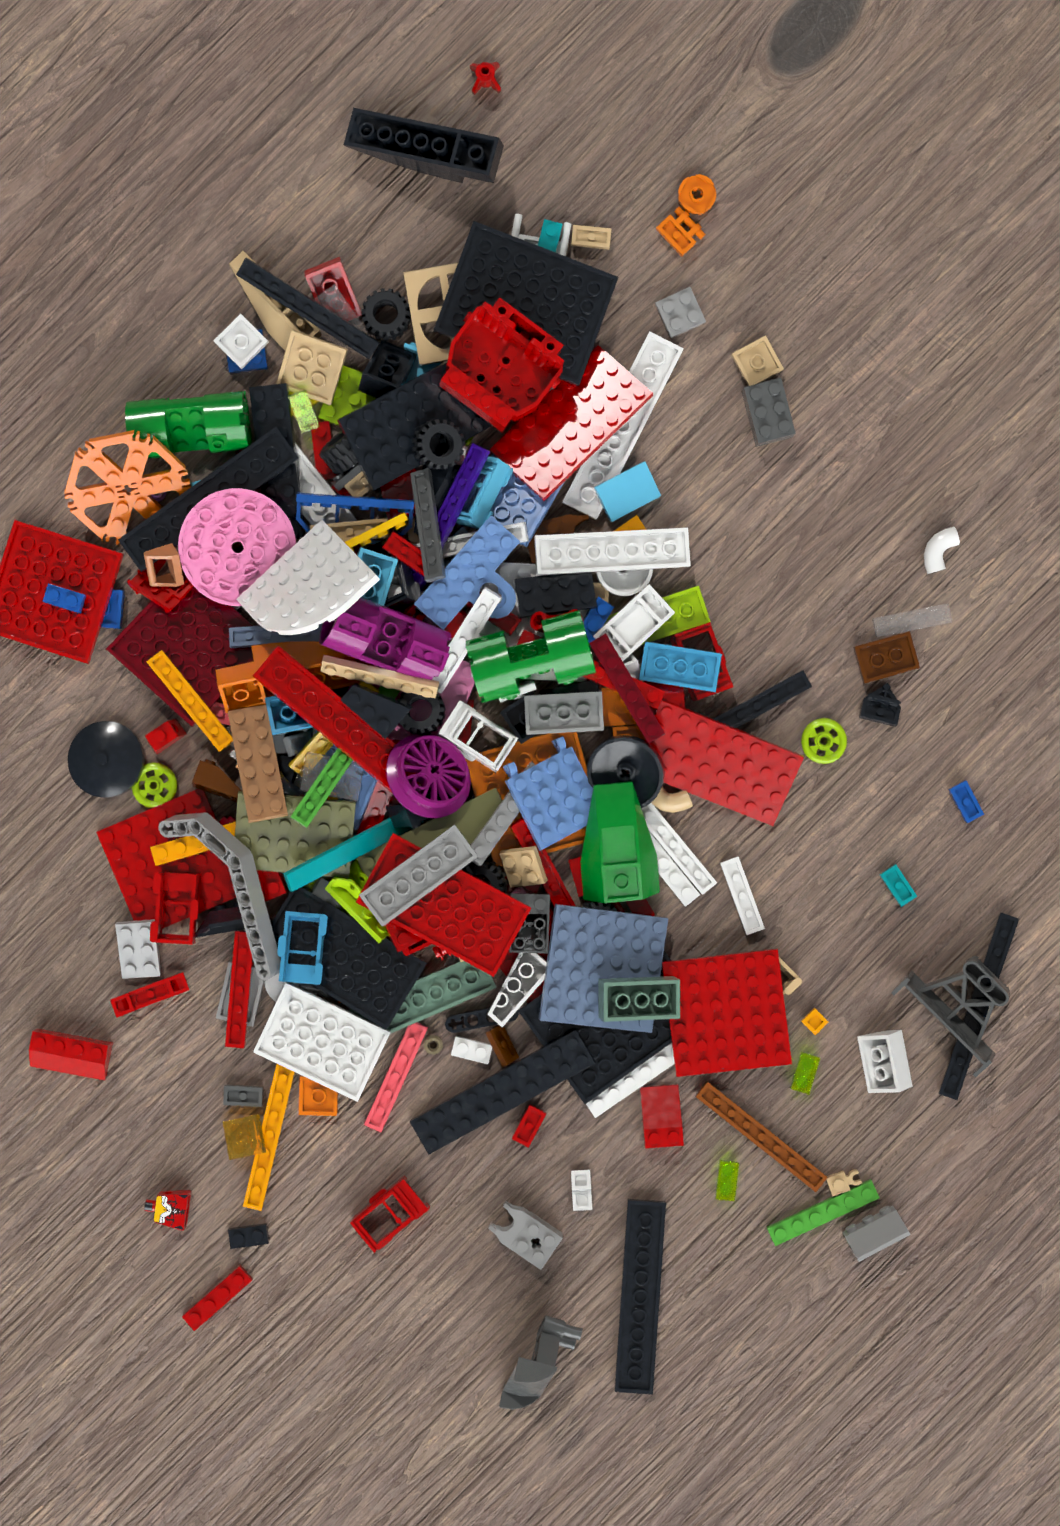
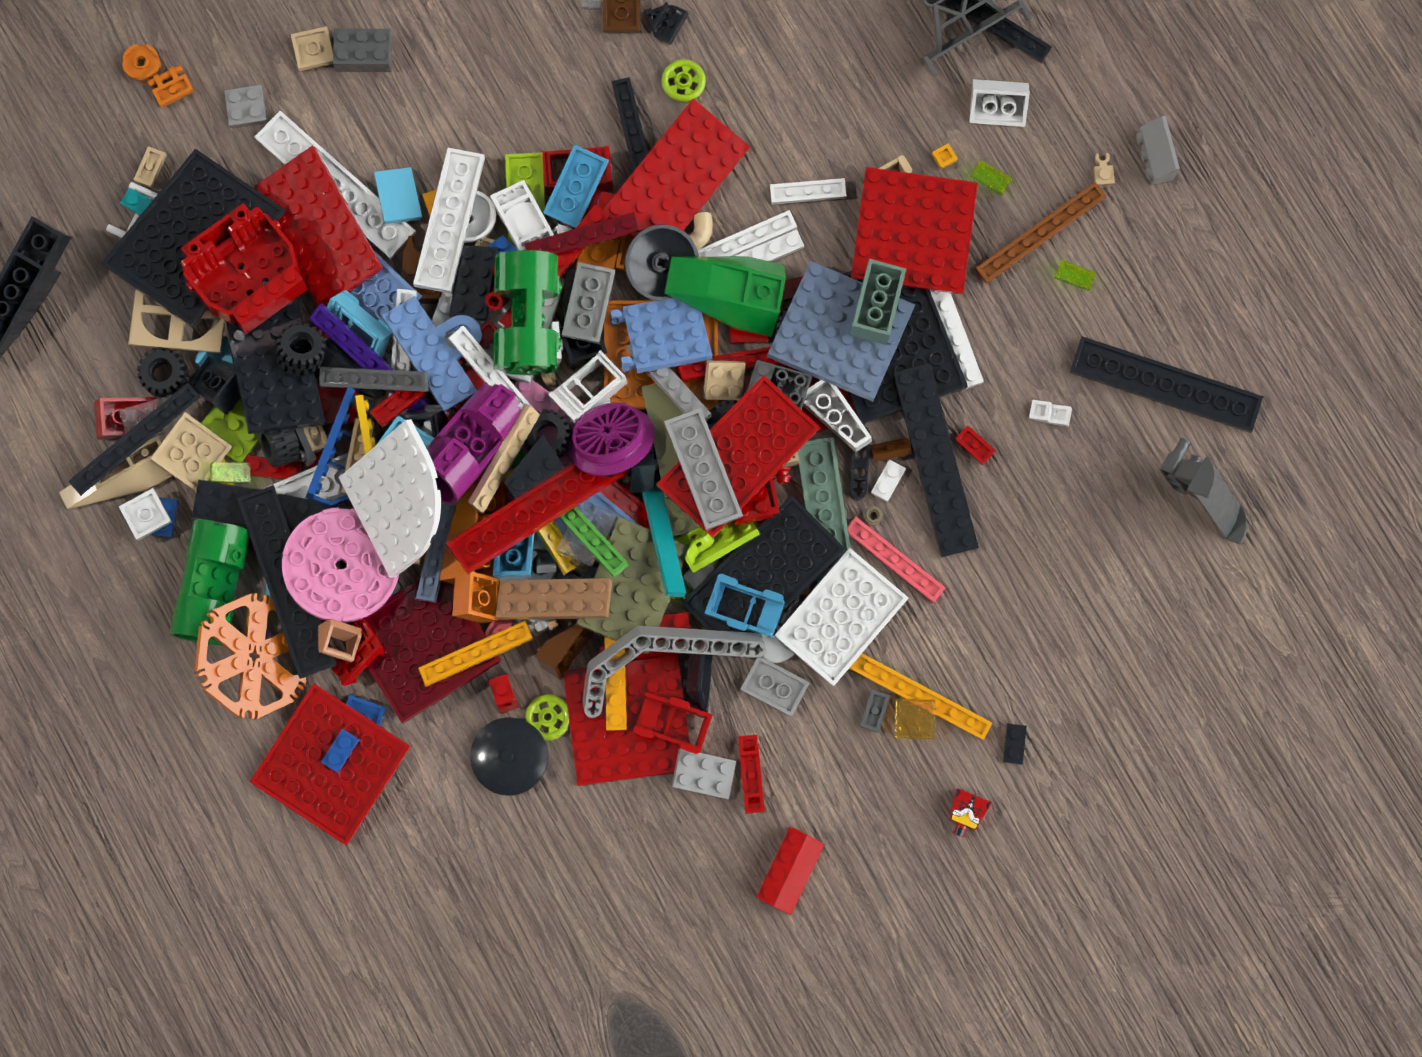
camera: 70 degrees left, 10 degrees down
(217, 1297) = (1068, 791): red plate -> none
(239, 992) = (769, 683): red plate -> none
(316, 1099) = (895, 639): orange plate -> none
(406, 1197) = (1014, 577): red piece -> none
(522, 1230) = (1074, 475): light grey brick -> none
(661, 1116) = (998, 319): red slope -> none
(822, 1212) = (1128, 196): bright green plate -> none
(898, 885) = (837, 48): teal plate -> none

